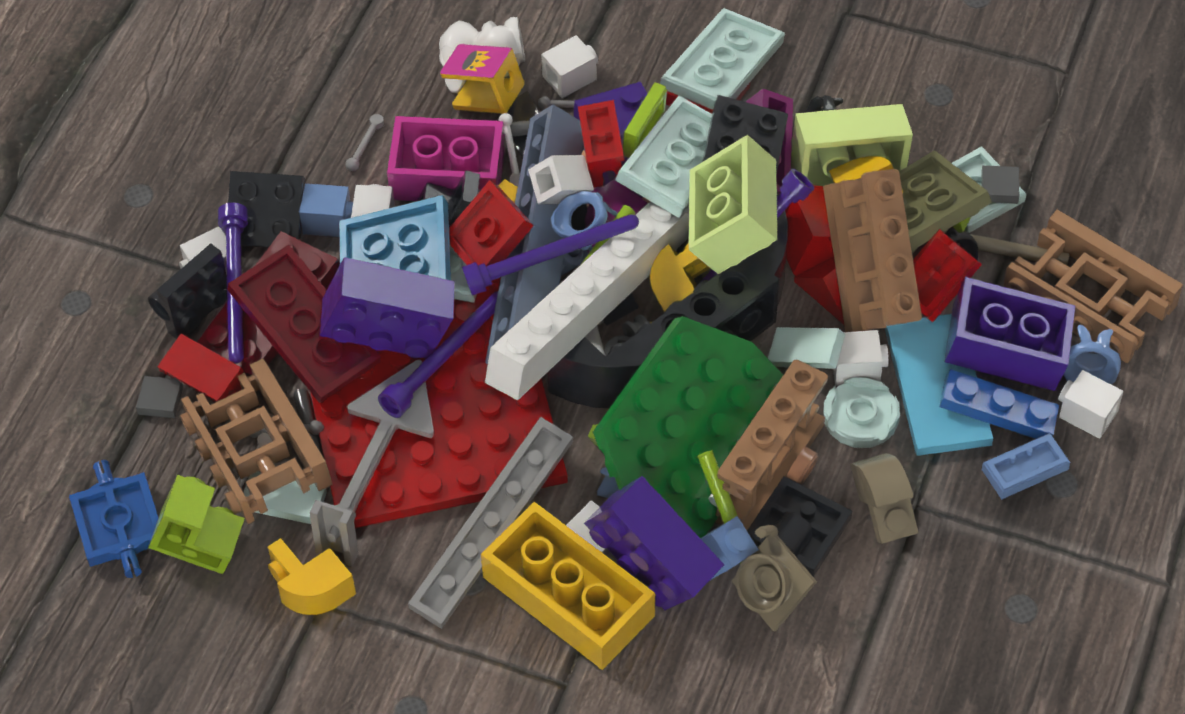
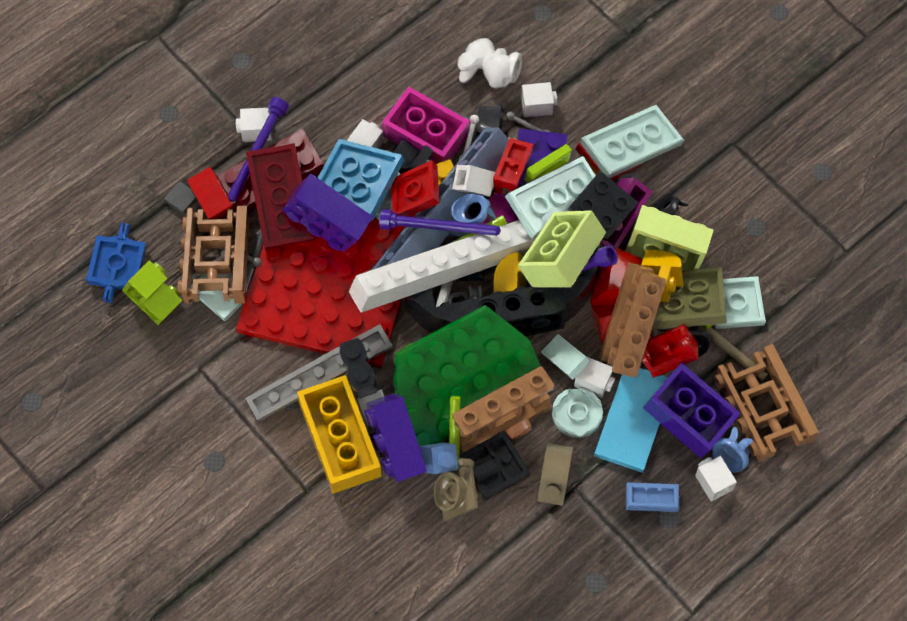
camera: 25 degrees right, 10 degrees up
(192, 292) = (230, 143): black plate -> none
(271, 205) = (306, 108): black plate -> none
(310, 587) = (198, 360): yellow brick -> none
(323, 209) = (338, 124): medium blue brick -> none
(334, 525) = (307, 273): light grey piece -> none
(376, 122) = (404, 80): light grey hinge -> none
(397, 398) = (307, 270): dark purple piece -> none
(485, 73) = (481, 84): yellow piece -> none
(545, 480) = (358, 367): none -> black brick
(998, 405) = (659, 451): blue plate -> none
(1001, 183) = (751, 308): dark grey tile -> none

